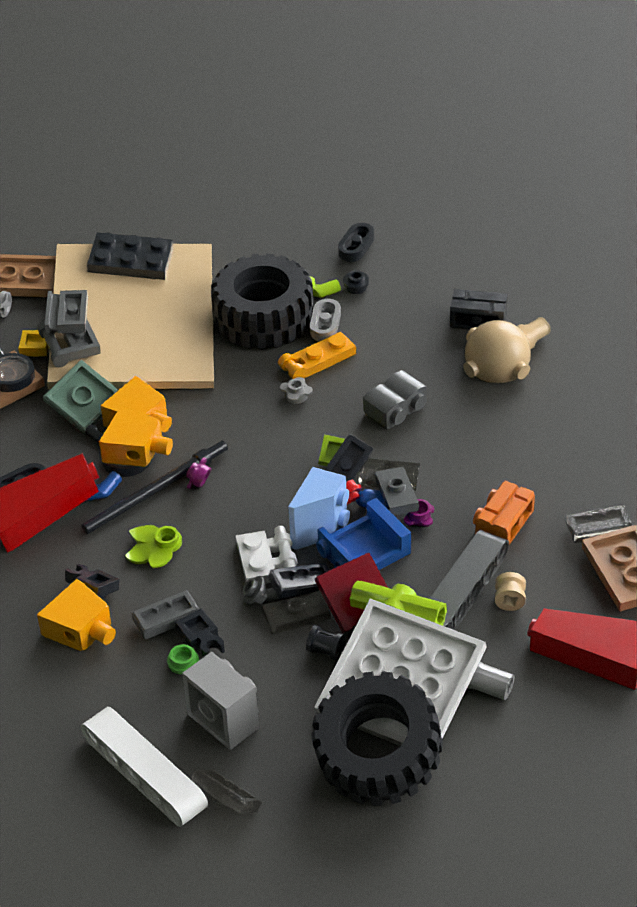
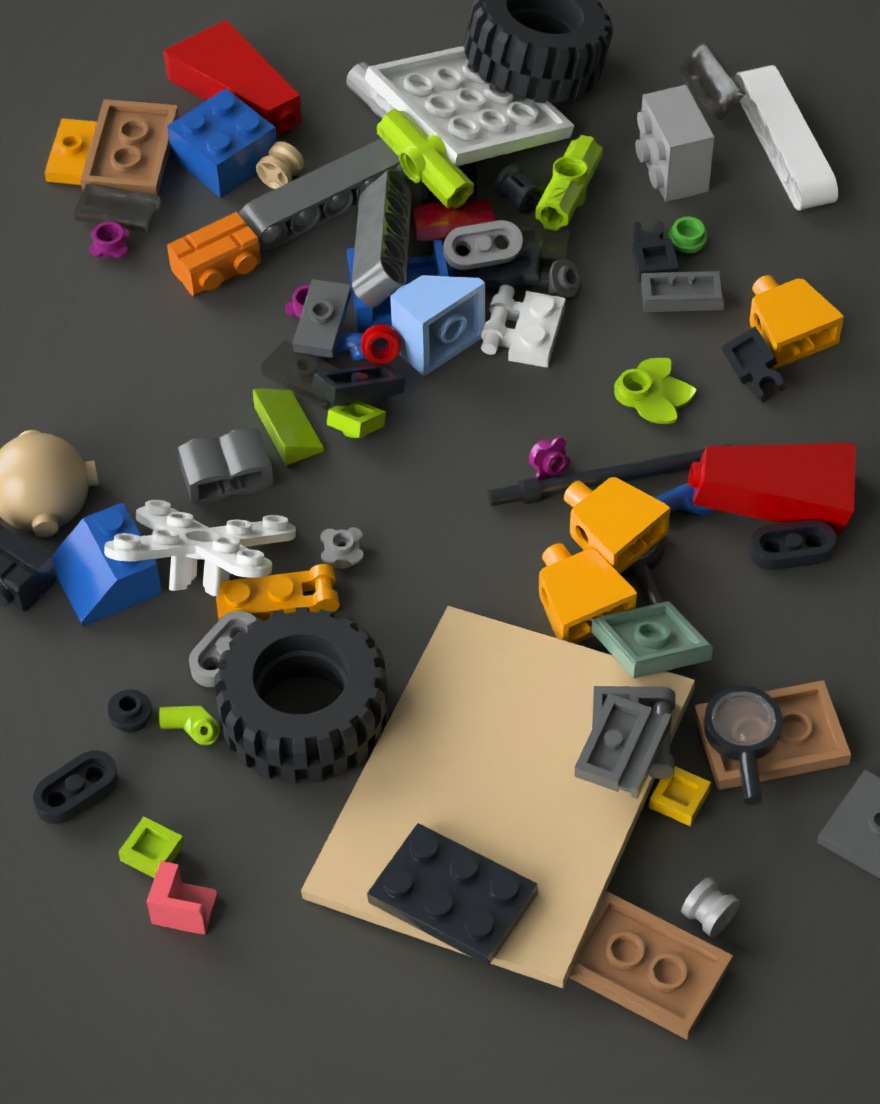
camera: 155 degrees left, 10 degrees up
(266, 219) = (178, 903): none -> coral panel
(289, 667) = (569, 182): none -> lime piece
(298, 233) = (149, 846): none -> lime plate
(317, 561) = (480, 242): none -> light grey plate
(377, 321) = (188, 540): none -> white piece
(385, 439) = (286, 424): none -> lime slope
(388, 537) = (382, 238): none -> dark grey beam
(418, 333) = (96, 582): none -> blue slope
(562, 583) = (221, 142): none -> blue brick
(585, 501) = (109, 240): none -> magenta plate

